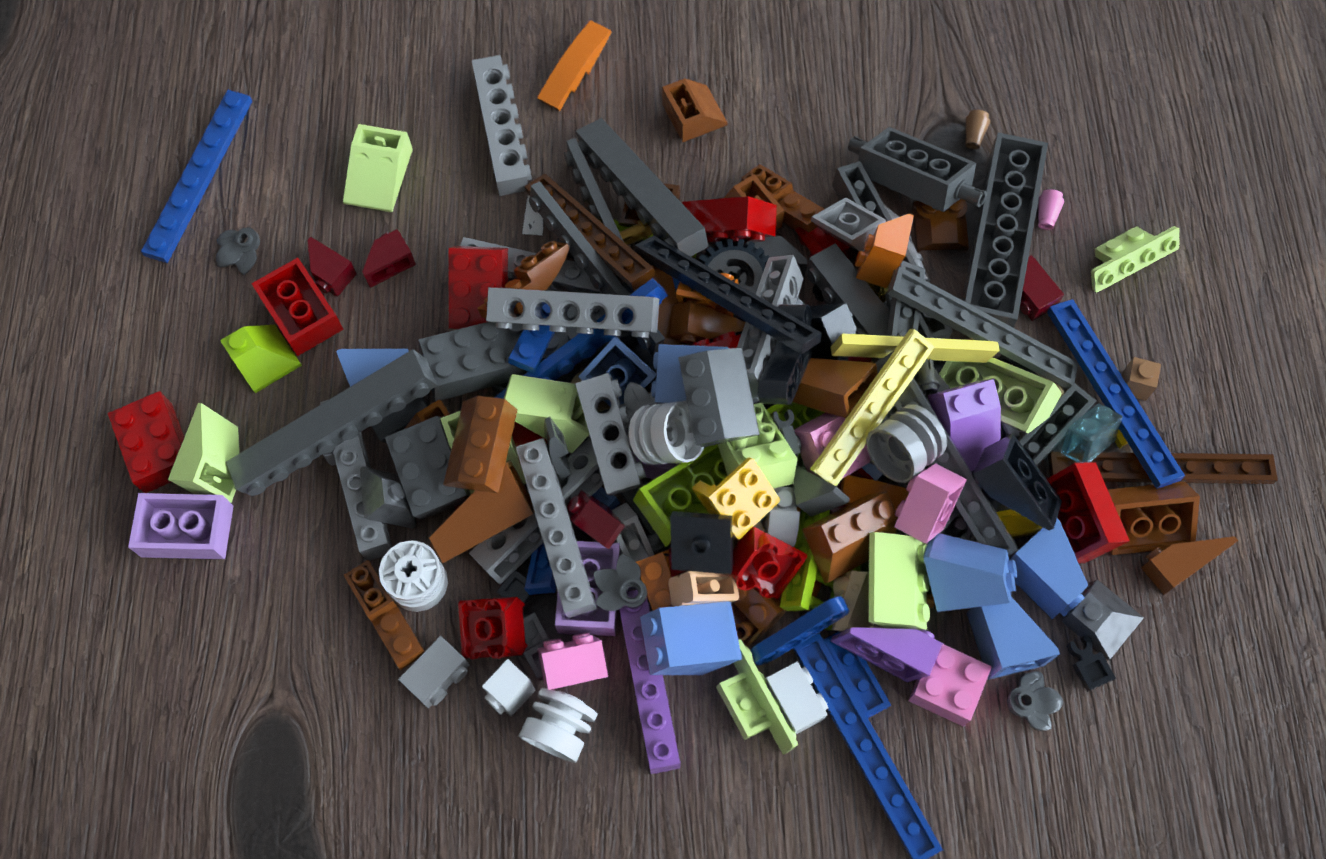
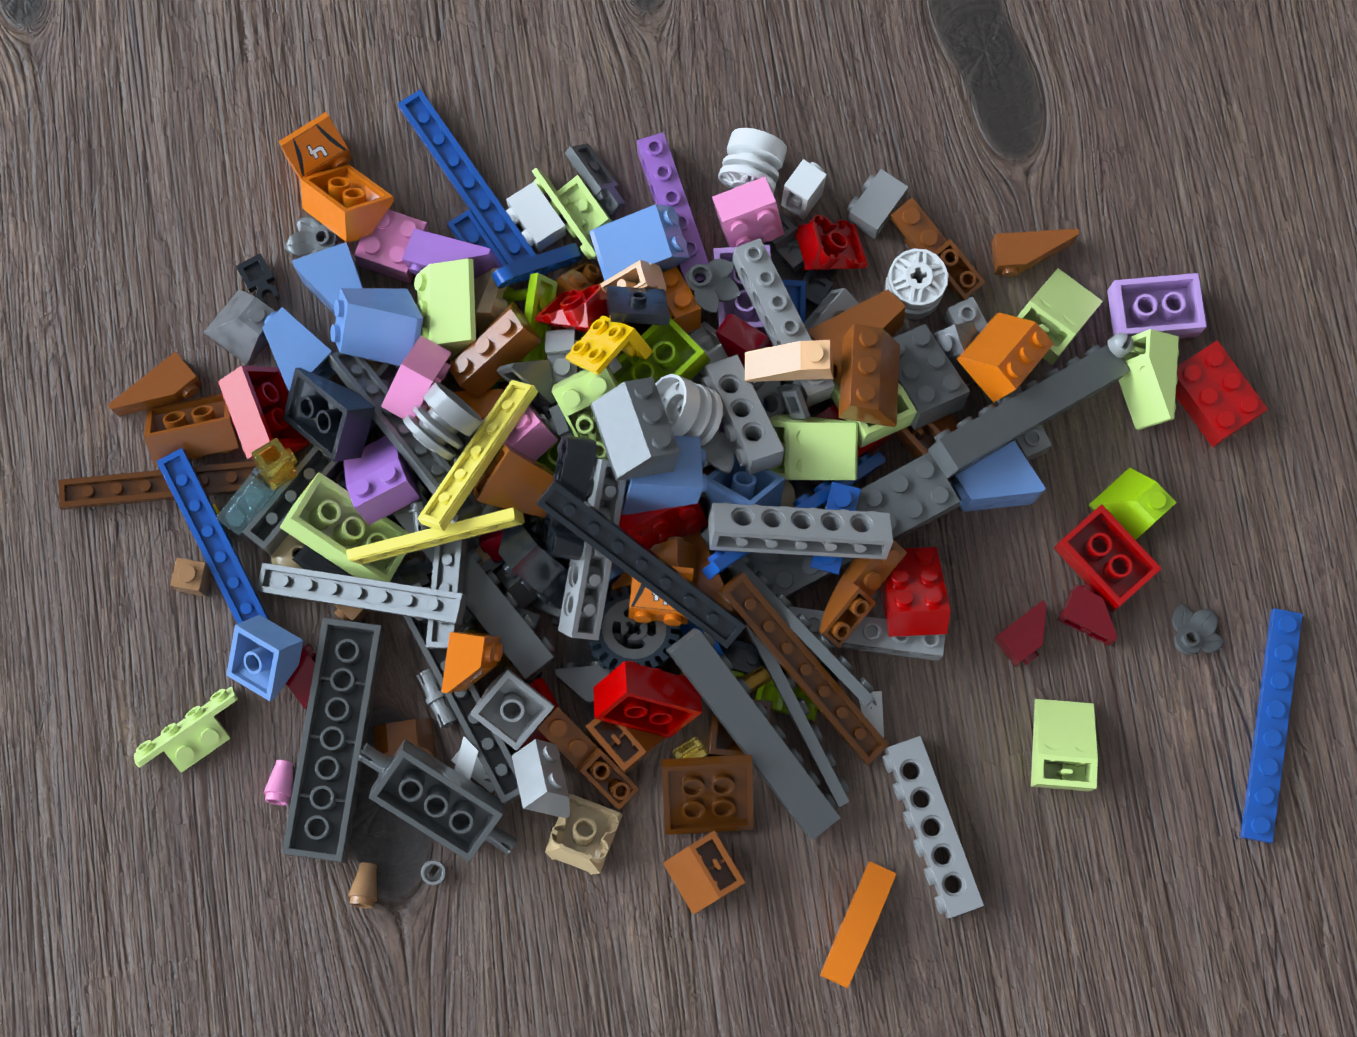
camera: 170 degrees right, 10 degrees up
(227, 484) = (1120, 344): none -> light grey hinge
(281, 534) = (1061, 311): none -> yellowish green slope
(294, 604) = (1022, 250): none -> dark orange slope
(341, 476) = (1004, 354): none -> orange slope
(555, 462) = (790, 362): none -> light nougat slope
(684, 154) = (708, 794): none -> reddish brown plate
(695, 191) = (690, 749): none -> clear yellow tile
(728, 739) = (596, 176): none -> dark grey hinge
(791, 149) = (584, 836): none -> tan slope
(825, 171) = (541, 779): none -> light grey slope
(889, 203) = (466, 759): none -> white sticker
(916, 130) = (437, 876): none -> light grey hinge
(1000, 727) = (345, 201): none -> orange slope
(1033, 796) = (315, 147): none -> orange slope
(1069, 447) = (275, 463): none -> clear yellow brick
(1070, 293) = (263, 656): none -> medium blue slope

